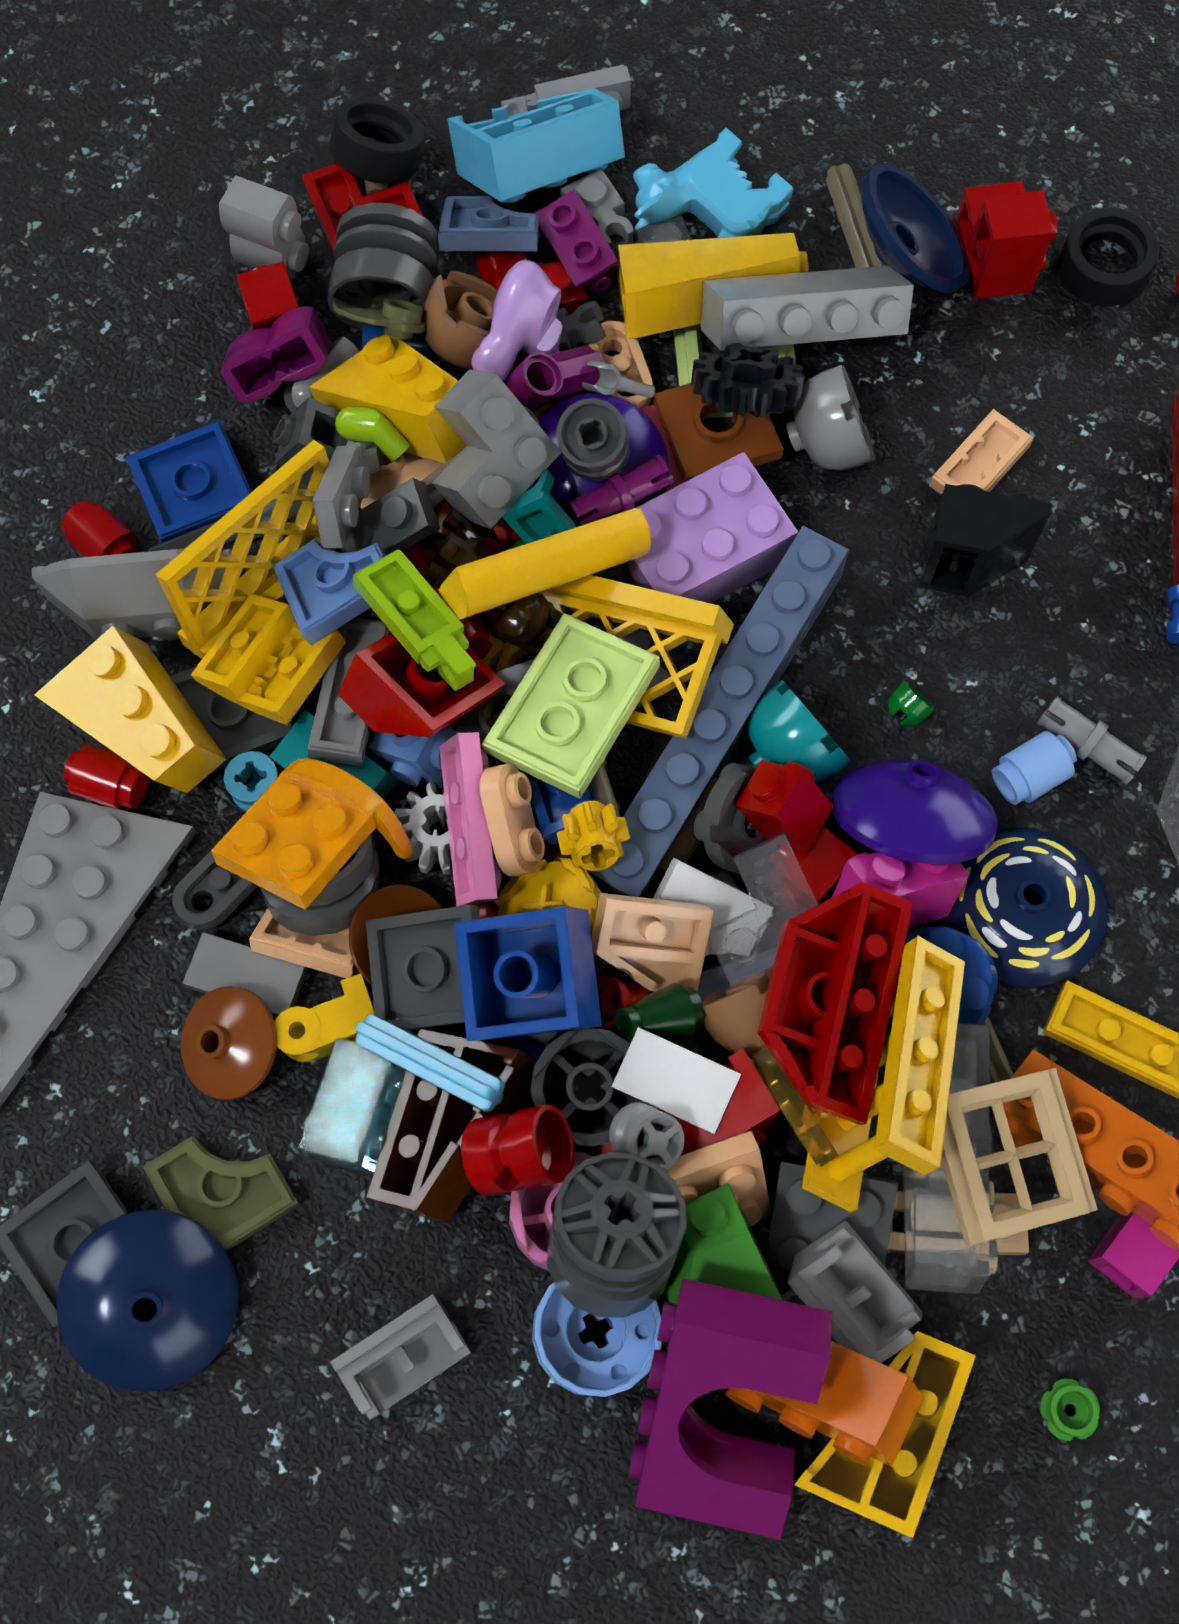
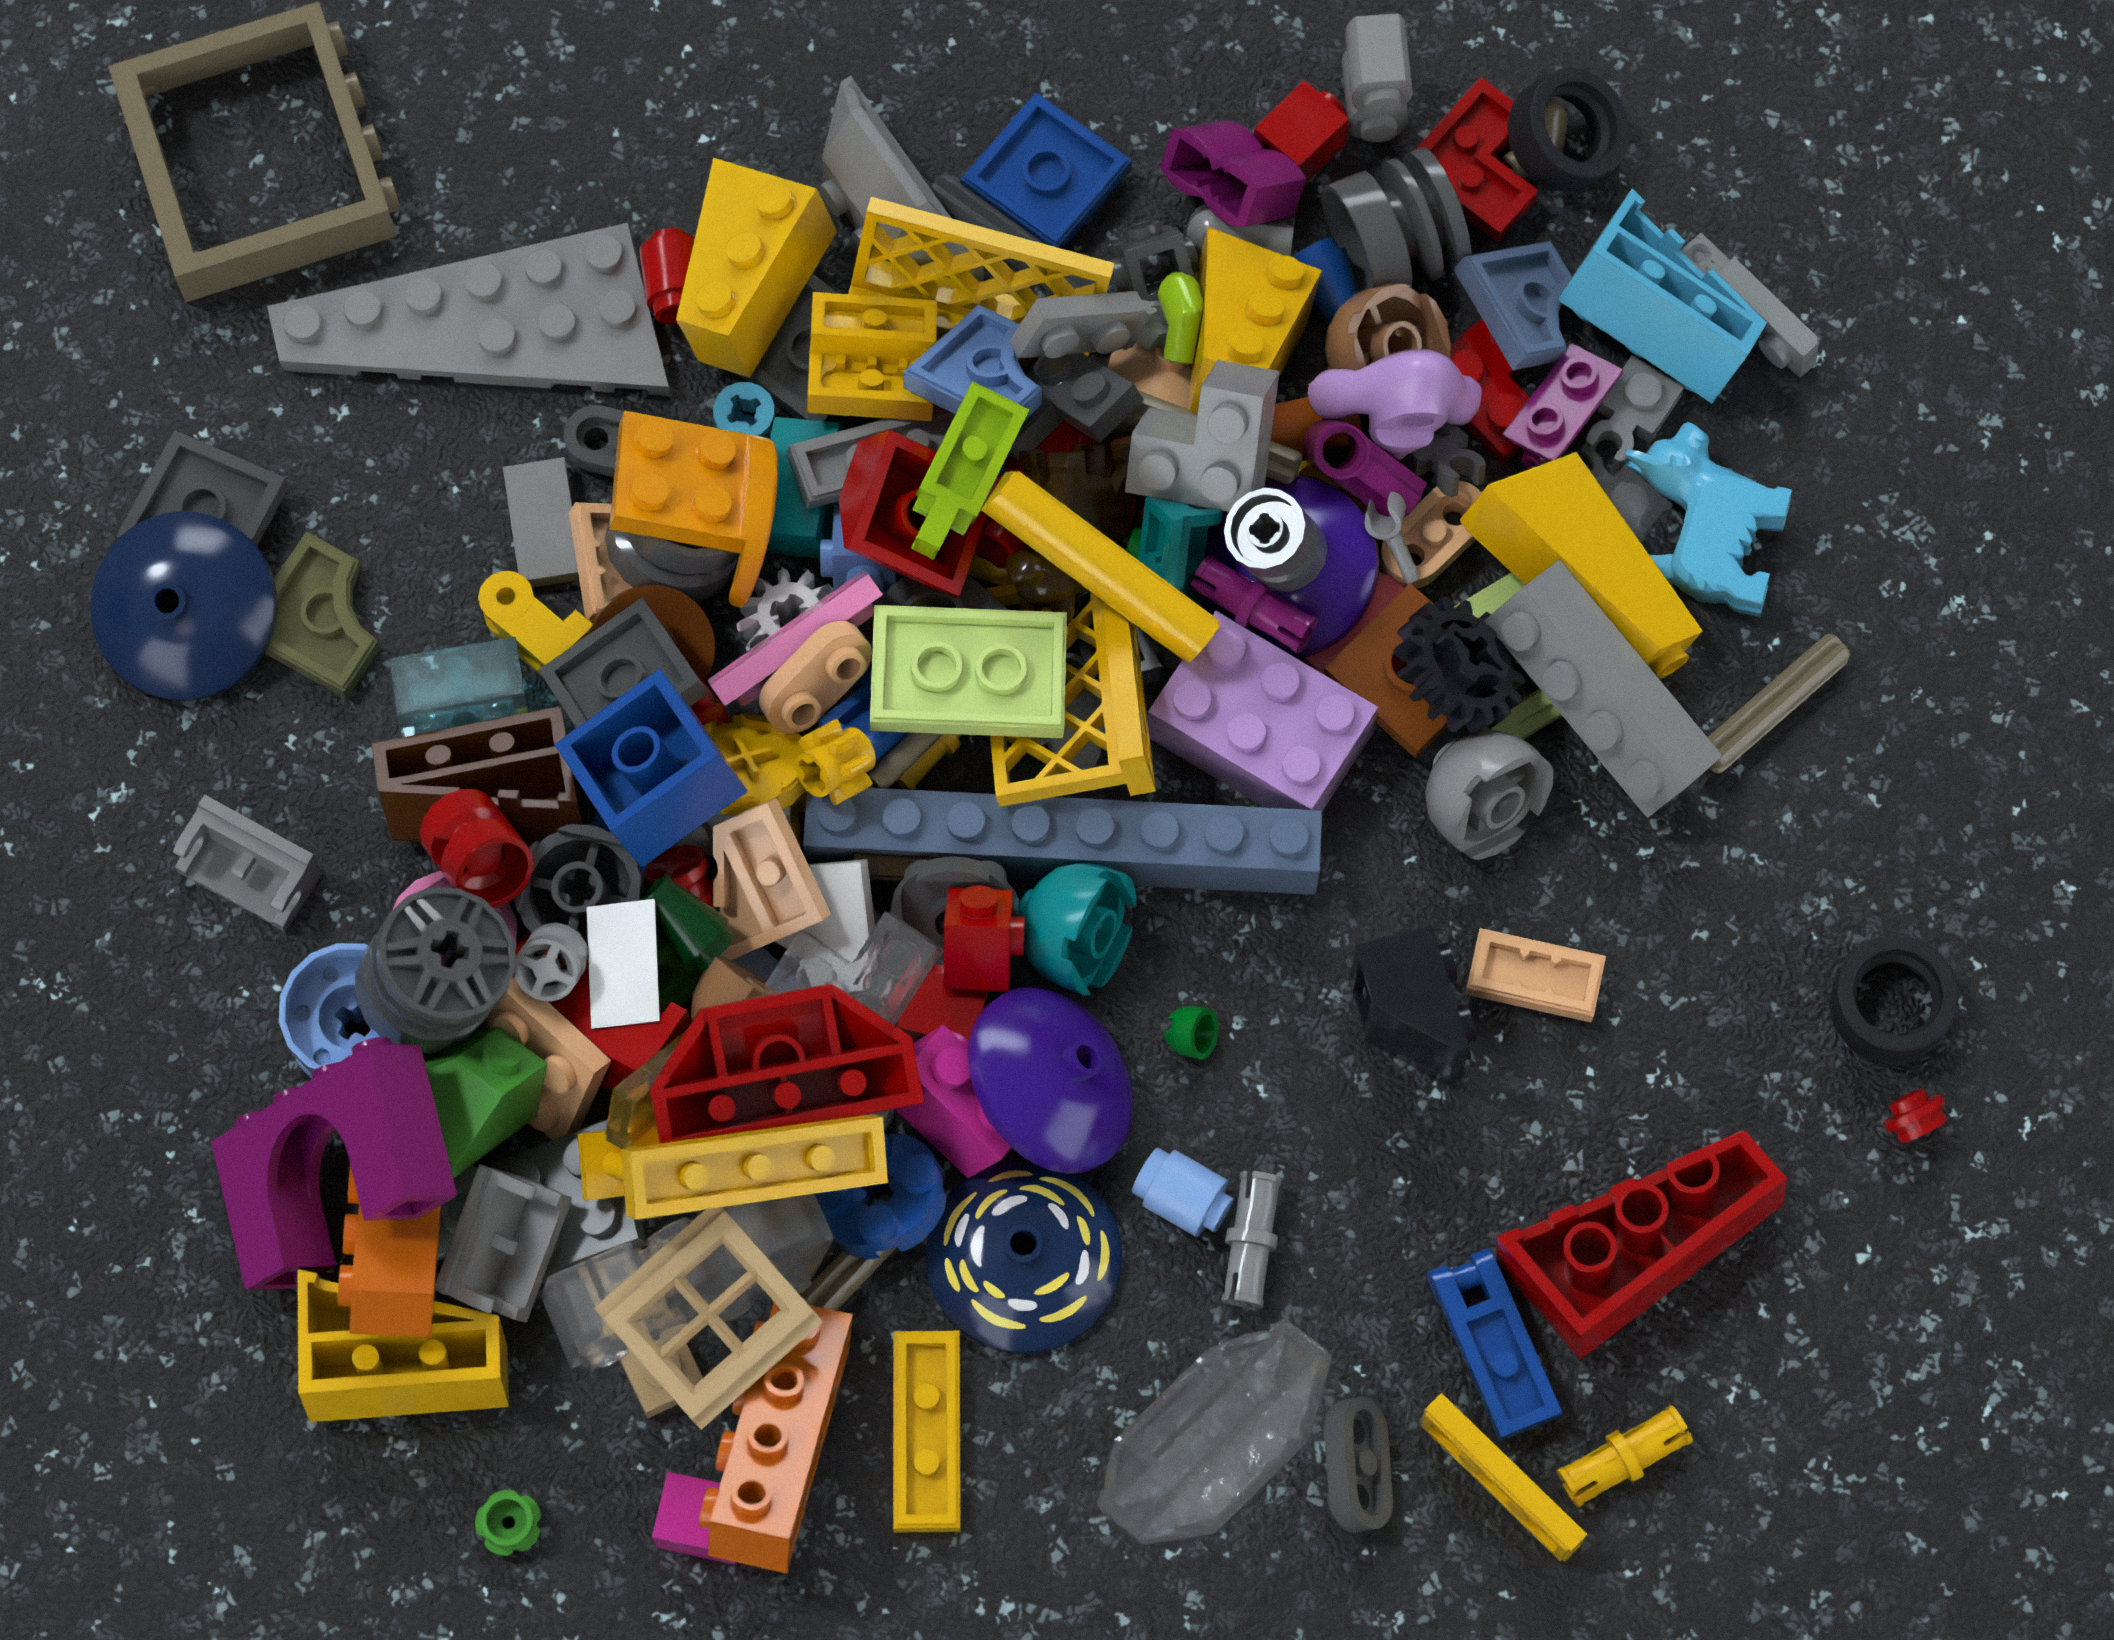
camera: 60 degrees right, 0 degrees up
(97, 531) = (931, 119): red brick -> none
(245, 1042) = (465, 542): dark orange dish -> none
(397, 316) = (1335, 262): olive plate -> none
(430, 1063) = (524, 727): medium azure axle -> none
(912, 230) = (1802, 764): dark blue dish -> none
(1005, 237) = (1838, 863): red brick -> none

